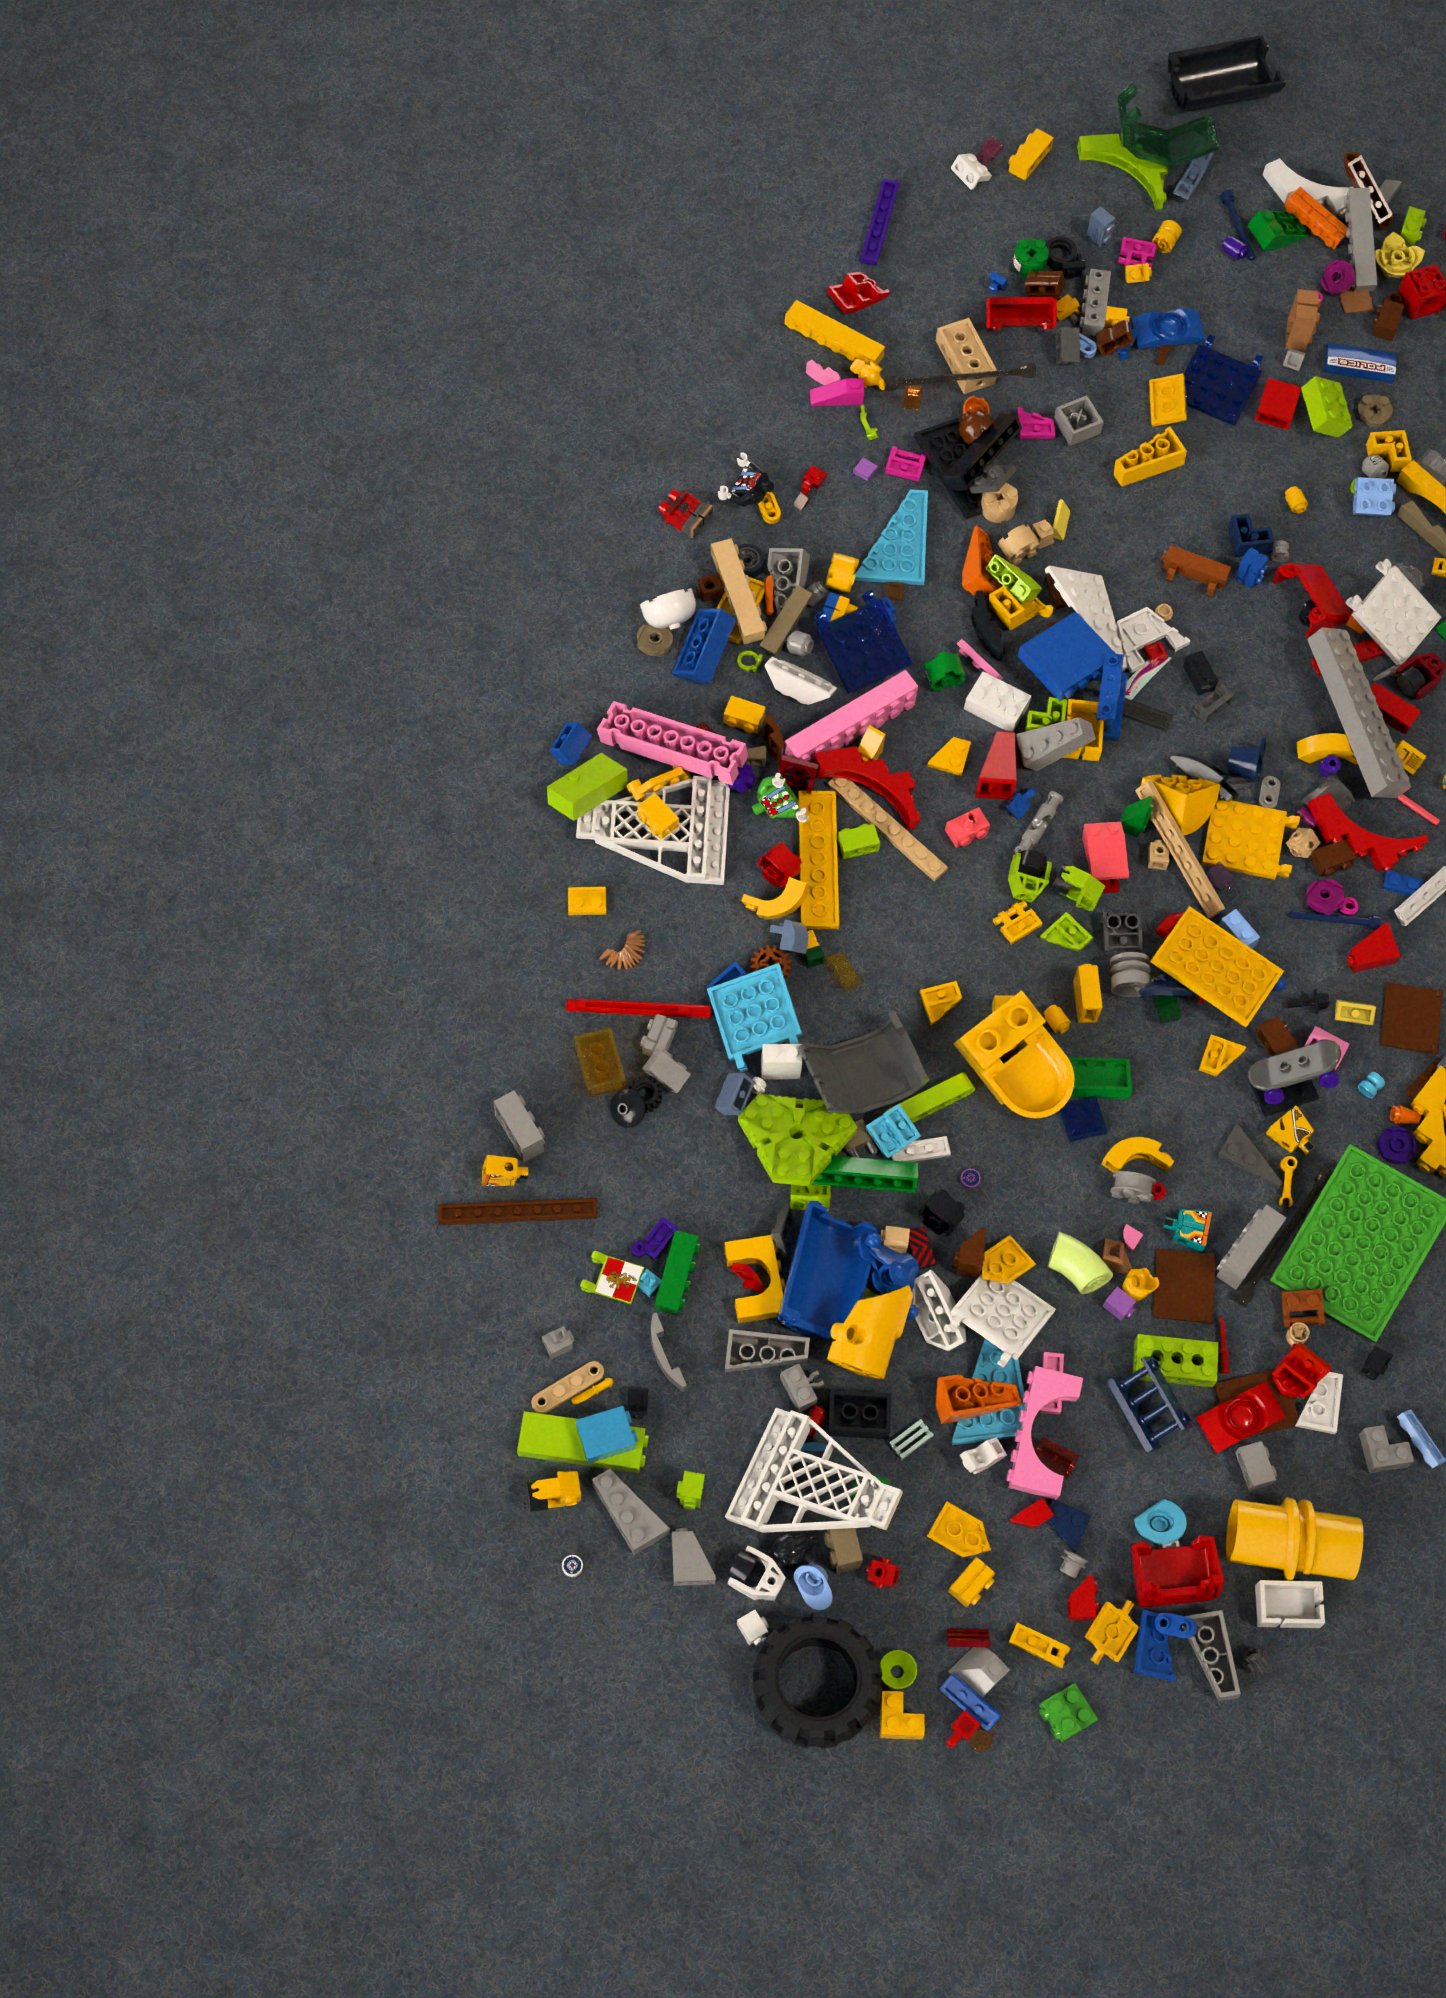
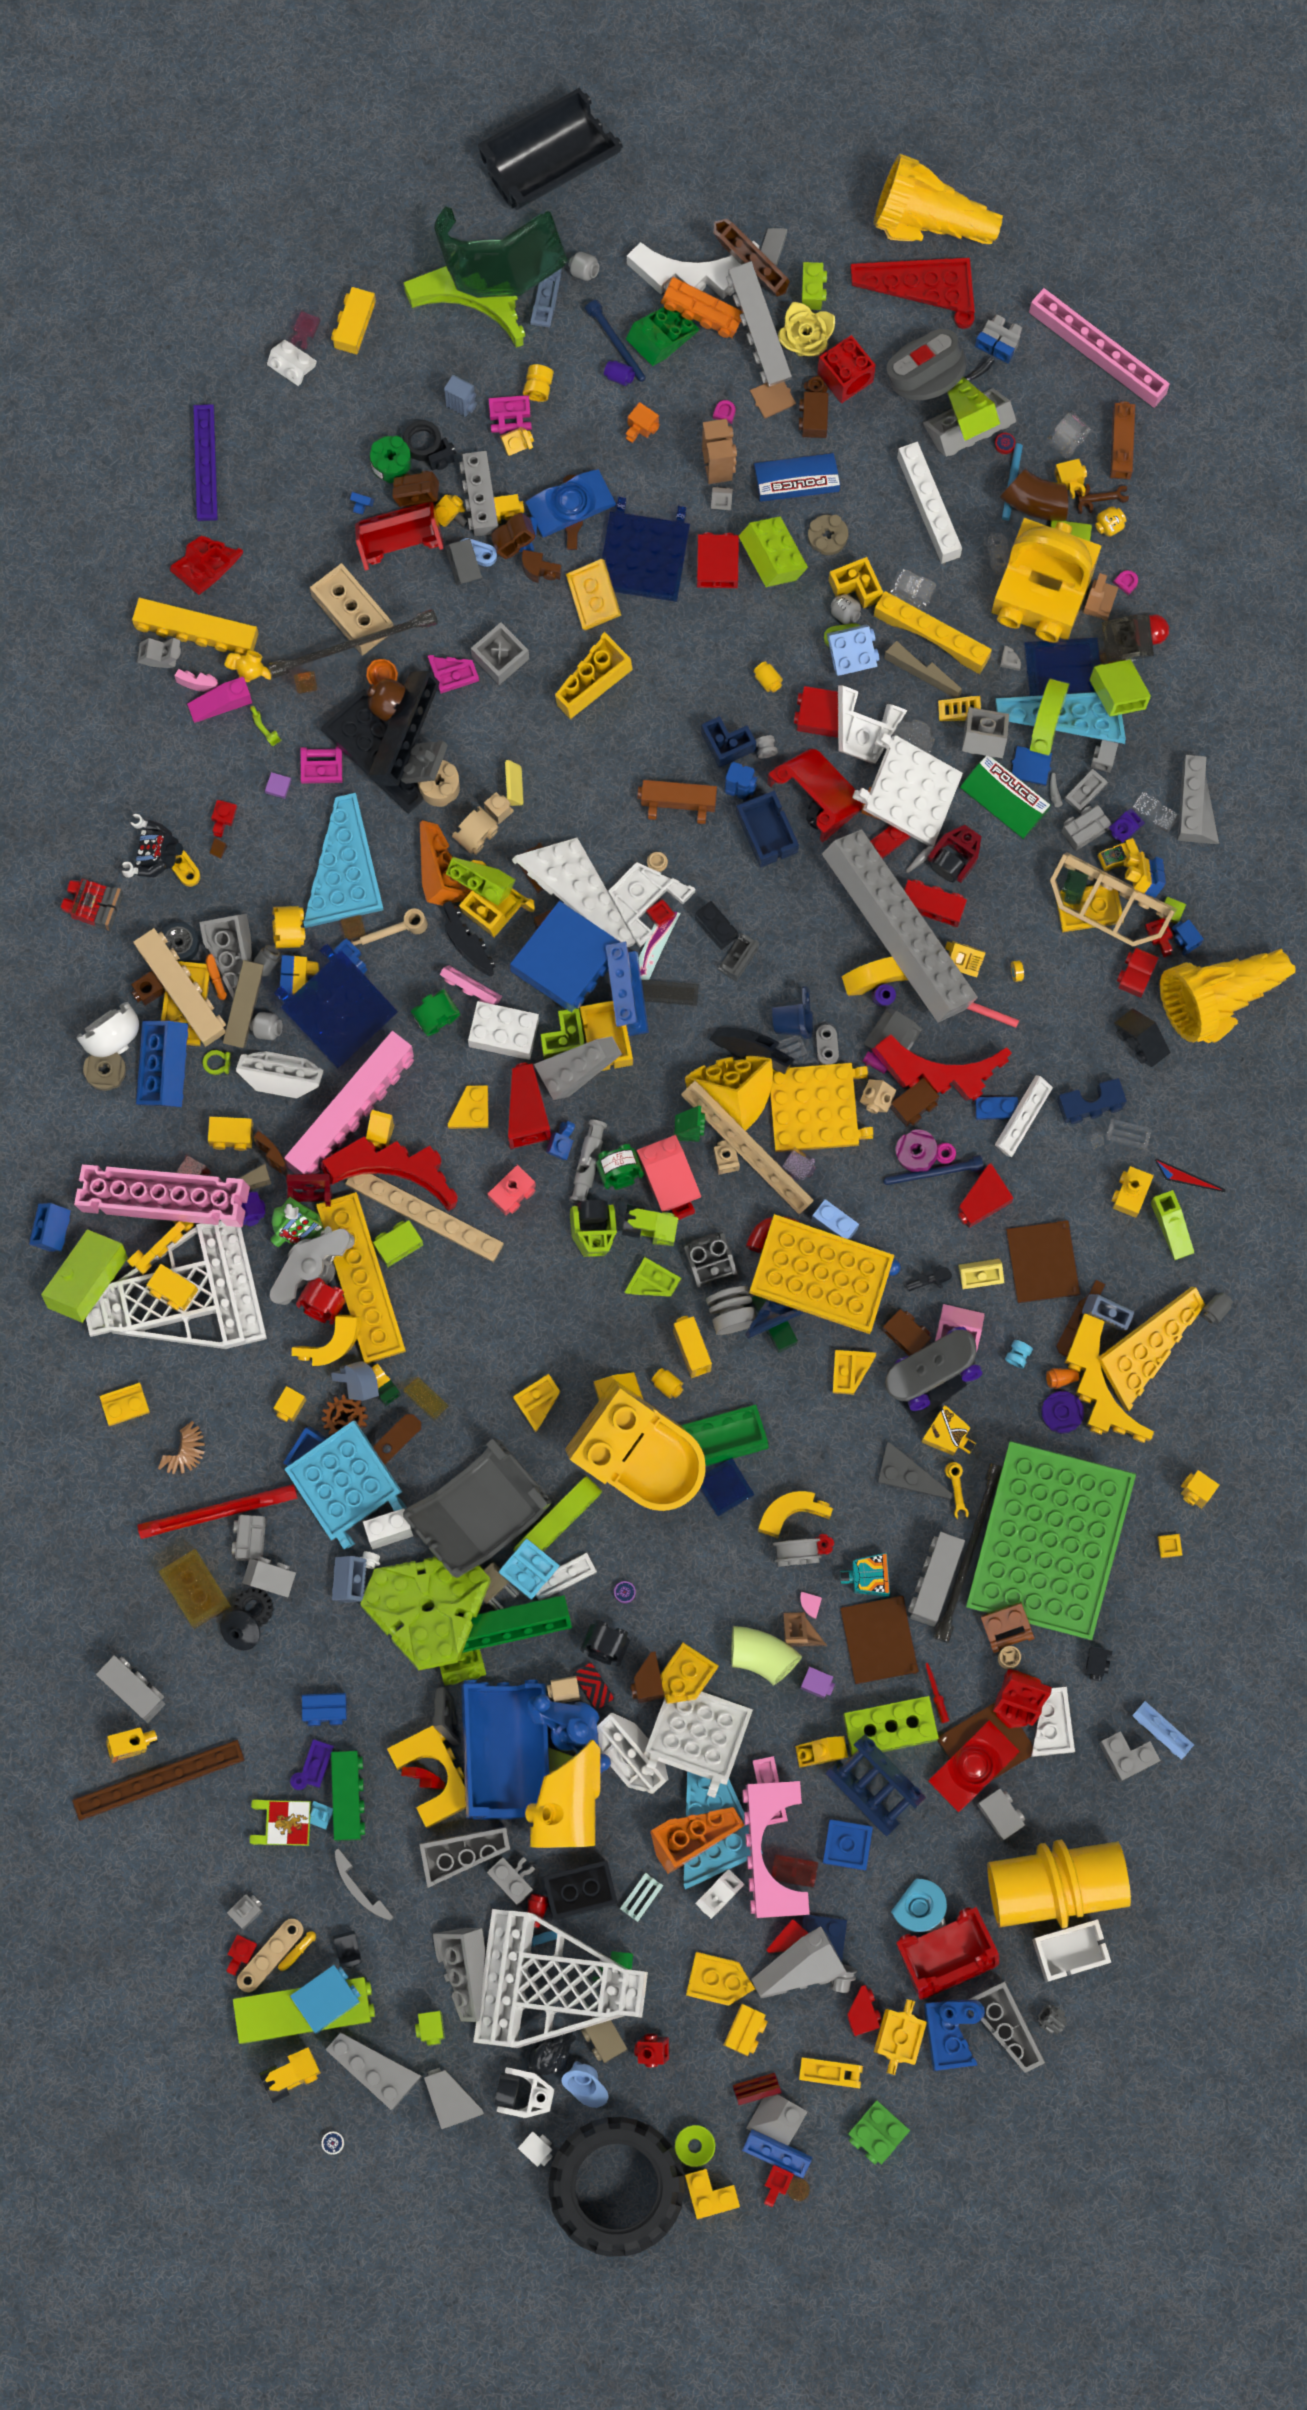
camera: 15 degrees left, 10 degrees up
(543, 1377) = (240, 1951): none -> red plate
(680, 1194) = (324, 1708): none -> blue brick
(726, 940) = (289, 1404): none -> yellow brick
(736, 1445) = (464, 1962): none -> light grey wedge
(780, 829) = (309, 1261): none -> light grey piece
(798, 346) = (158, 653): none -> light grey brick
(812, 991) = (398, 1437): none -> reddish brown piece
(946, 606) = (408, 917): none -> tan piece
(1020, 926) = (600, 1288): yellow plate -> none
(1042, 1538) = (803, 1964): none -> light grey wedge
(1065, 834) = (619, 1167): none -> green brick
(1108, 1363) = (821, 1751): none -> yellow slope
(1109, 1450) = (847, 1845): none -> blue plate
(1126, 368) = (535, 567): none -> reddish brown brick
(1139, 1283) = (832, 1654): yellow hair -> none
(1228, 165) = (584, 266): none -> light grey head
(1244, 287) = (642, 421): none -> orange brick
(1264, 611) = (765, 831): none -> dark blue piece
(1335, 538) = (817, 712): none -> red brick
(1346, 280) = (755, 381): magenta plate -> none
(1362, 558) = (858, 731): none -> white wing

